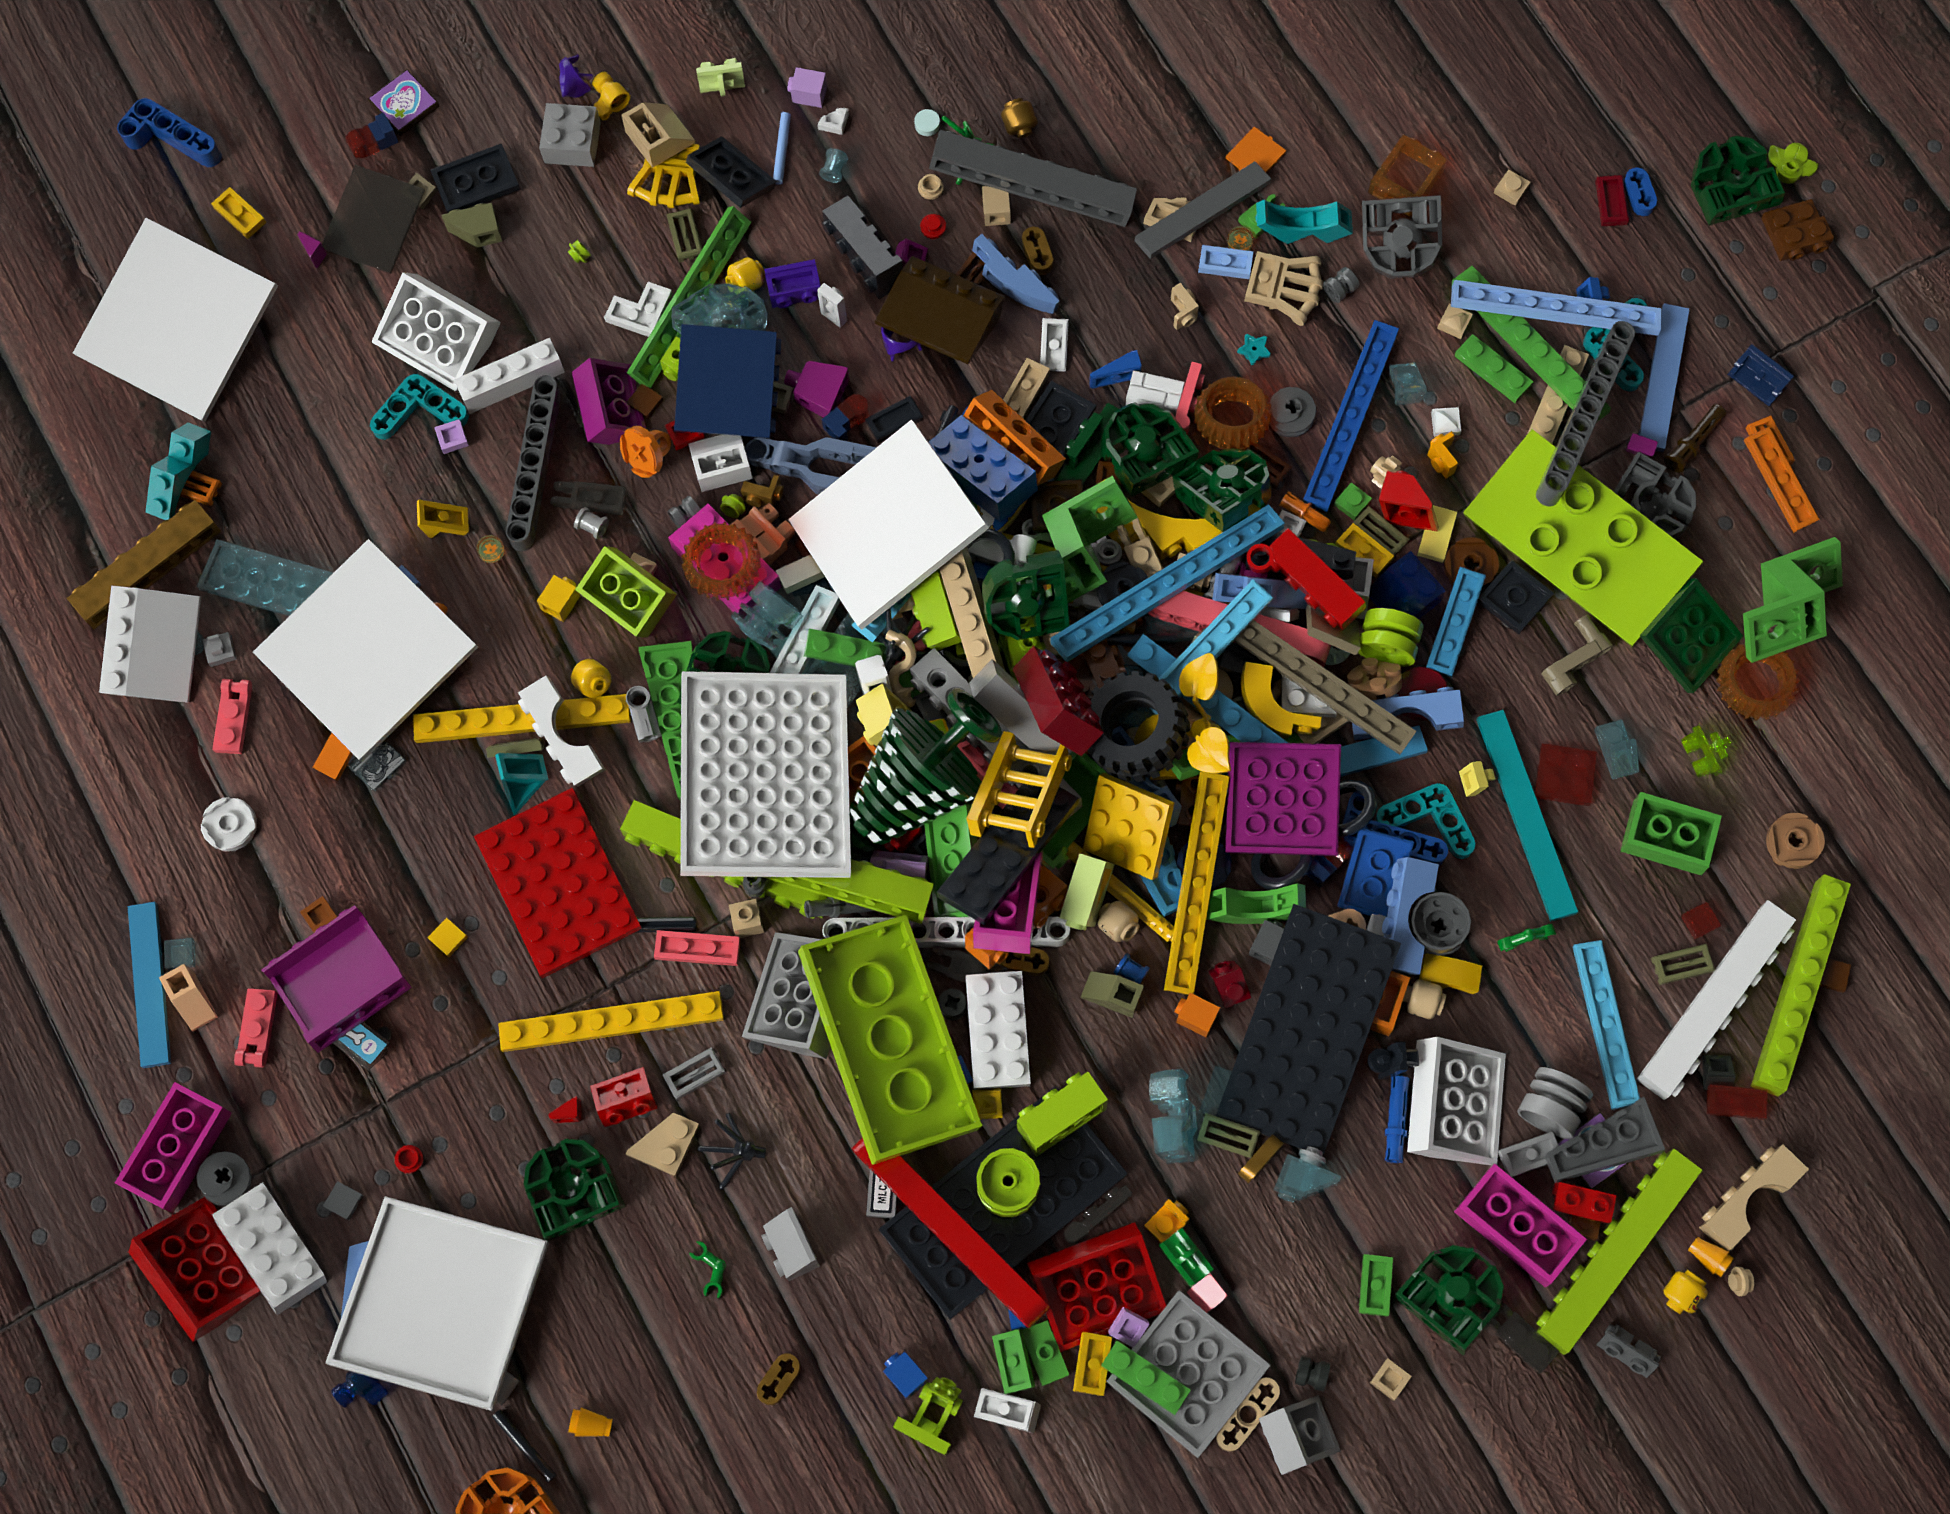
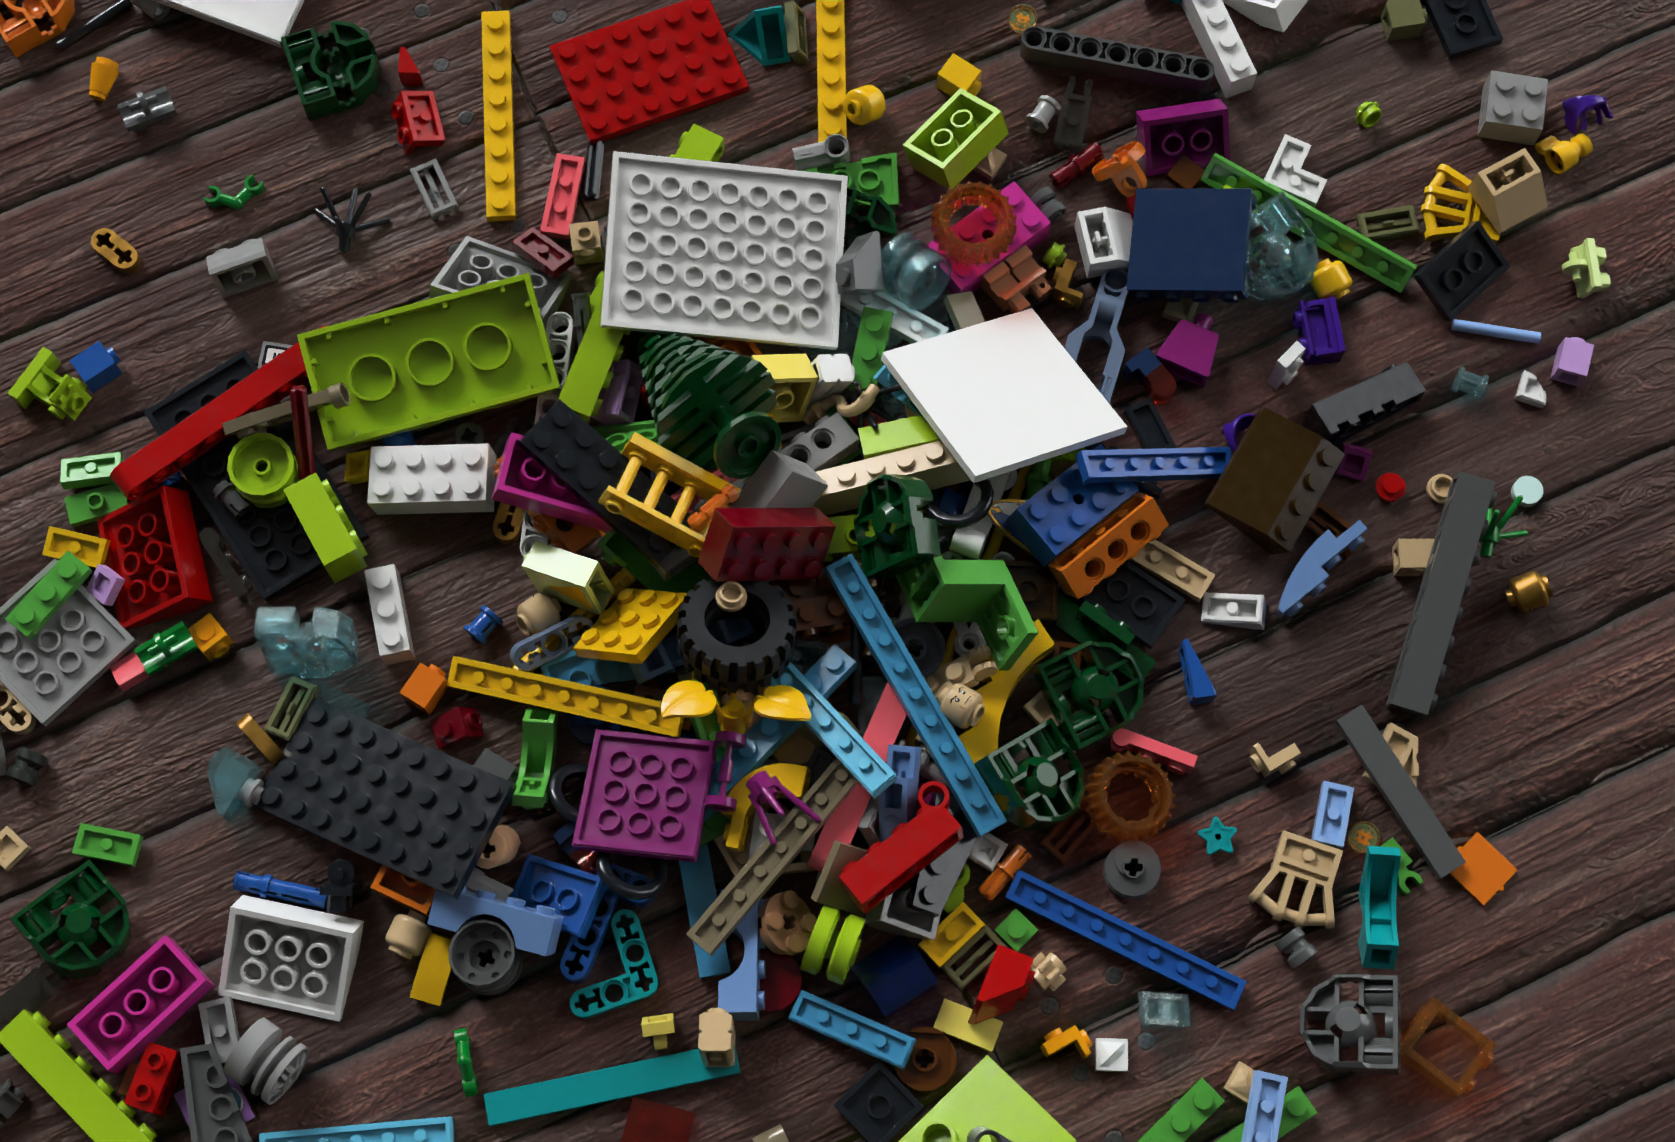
camera: 90 degrees right, 0 degrees up
(543, 702) = (831, 53): white arch -> none
(625, 1368) = (147, 109): none -> dark grey hips
(641, 492) = (1076, 165): none -> dark red pin
(666, 1144) = (365, 160): tan wing -> none
(758, 958) = (543, 252): none -> dark red plate
(768, 655) = (861, 266): none -> dark grey slope
(938, 401) = (1152, 464): none -> blue plate
(965, 1196) = (278, 414): none -> dark tan plate
(980, 1140) = (302, 431): none -> dark red axle
(1007, 1410) = (45, 465): white slope -> none
(1028, 748) = (698, 521): none -> orange axle
(1033, 252) = (1354, 594): pearl gold beam -> none
(1033, 1217) = (231, 499): none -> dark grey pin
(1112, 723) = (731, 596): none -> tan plate
(1113, 992) = (457, 602): olive slope -> none
(1131, 1054) = (389, 614): none -> white brick
(1155, 390) = (1162, 711): white brick -> none
(1155, 918) = (535, 658): none -> sand blue beam
(1173, 544) = (961, 705): none -> tan head
(1260, 729) = (730, 741): none -> magenta wheel
(1271, 694) = (764, 789): none -> magenta plant
(1484, 721) = (717, 1038): none -> tan brick

